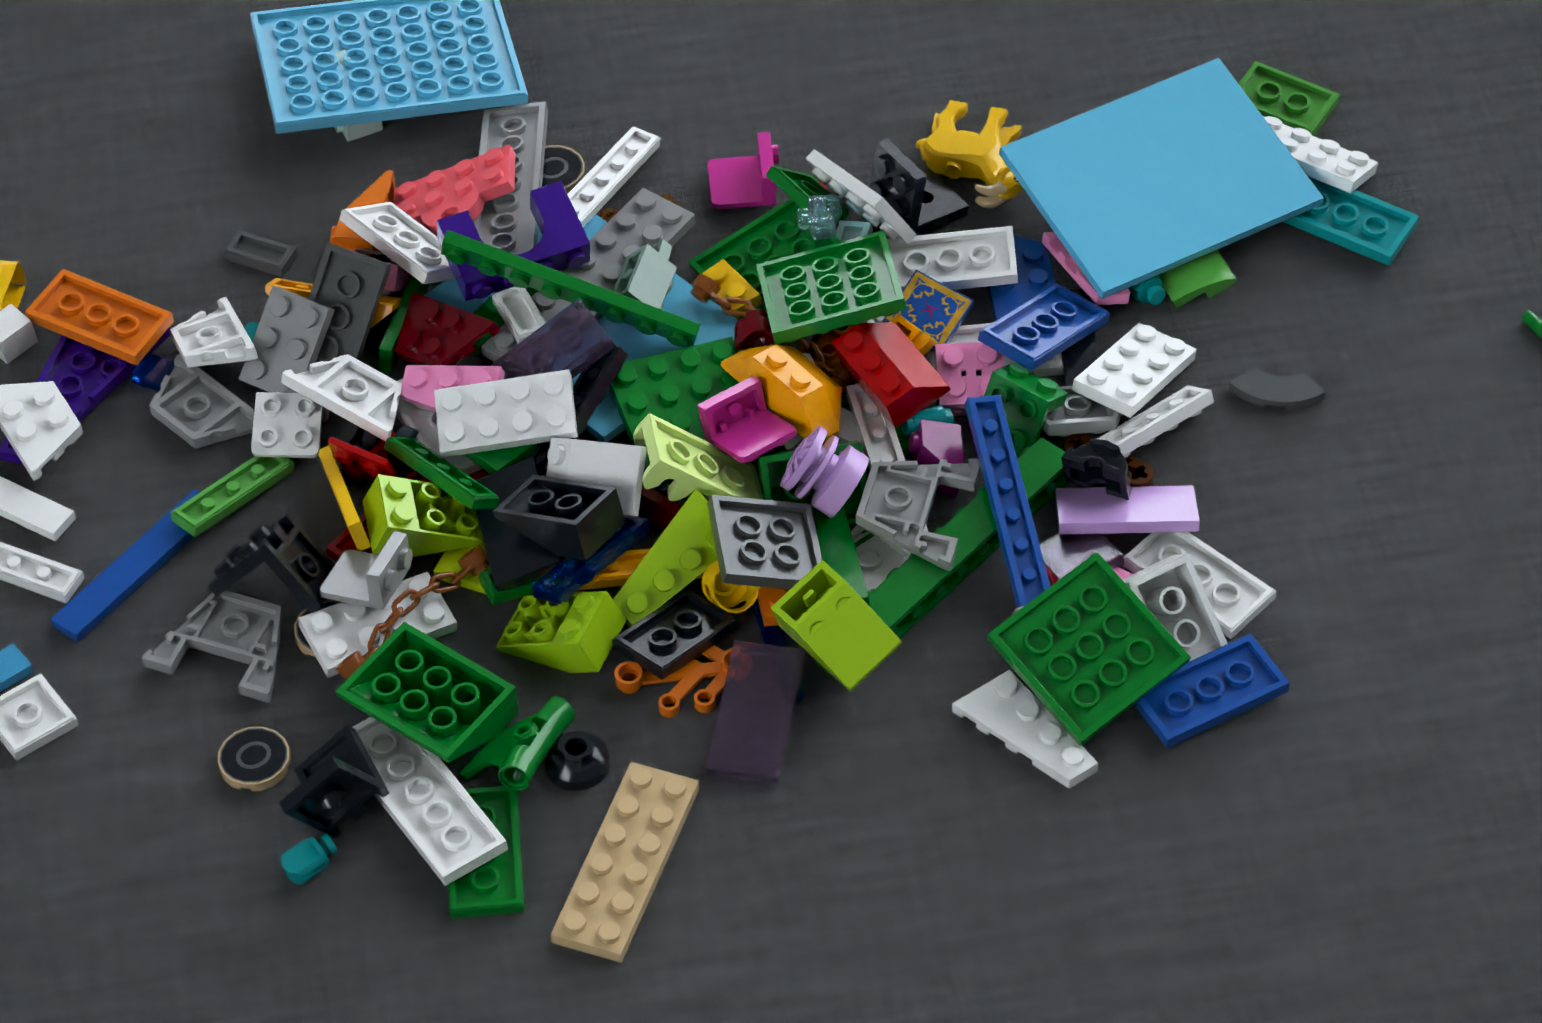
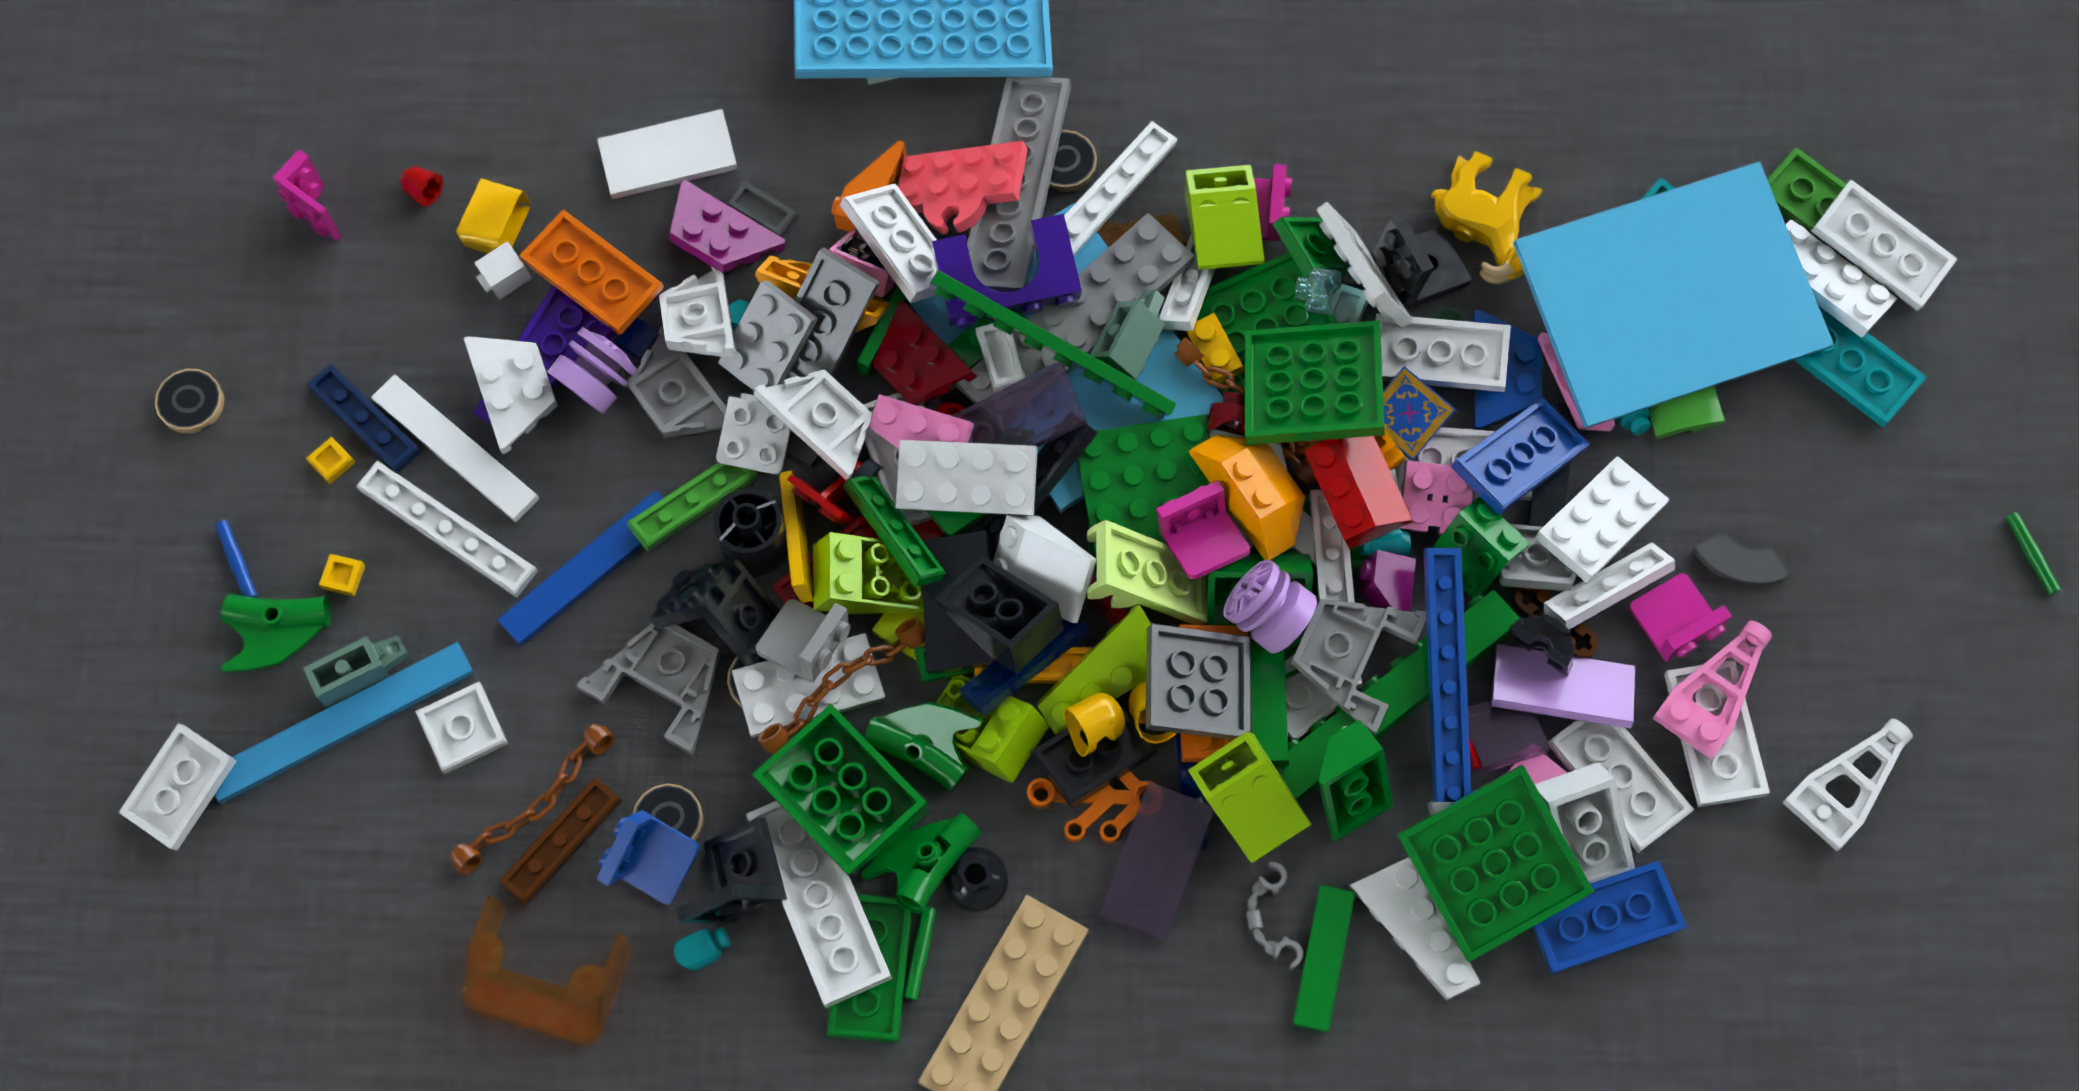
camera: 10 degrees right, 20 degrees up
(54, 823) = (467, 858): none -> dark orange piece
(115, 392) = (593, 370): none -> lavender wheel
(146, 795) = (560, 841): none -> reddish brown tile
(148, 924) = (566, 1013): none -> clear orange windscreen
(157, 221) = (667, 154): none -> white tile
(220, 273) = (718, 232): none -> wing
(241, 784) = (648, 856): none -> blue bracket
(301, 486) = (751, 530): none -> black cylinder
(512, 632) = (924, 739): none -> green pin
(532, 831) = (920, 954): none -> green piece
(671, 590) = (1098, 717): none -> yellow helmet
(696, 245) = (1186, 296): none -> white plate
(717, 179) = (1224, 217): none -> lime slope
(864, 750) = (1255, 921): none -> light grey piece
(937, 600) = (1353, 780): none -> green slope
(939, 770) = (1323, 959): none -> green tile
(1226, 440) = (1678, 617): none -> dark pink bracket
(1264, 517) = (1694, 722): none -> bright pink plate
(1284, 526) = (1736, 768): none -> white plate
(1355, 120) = (1884, 245): none -> white plate
(1409, 576) = (1823, 811): none -> white plate

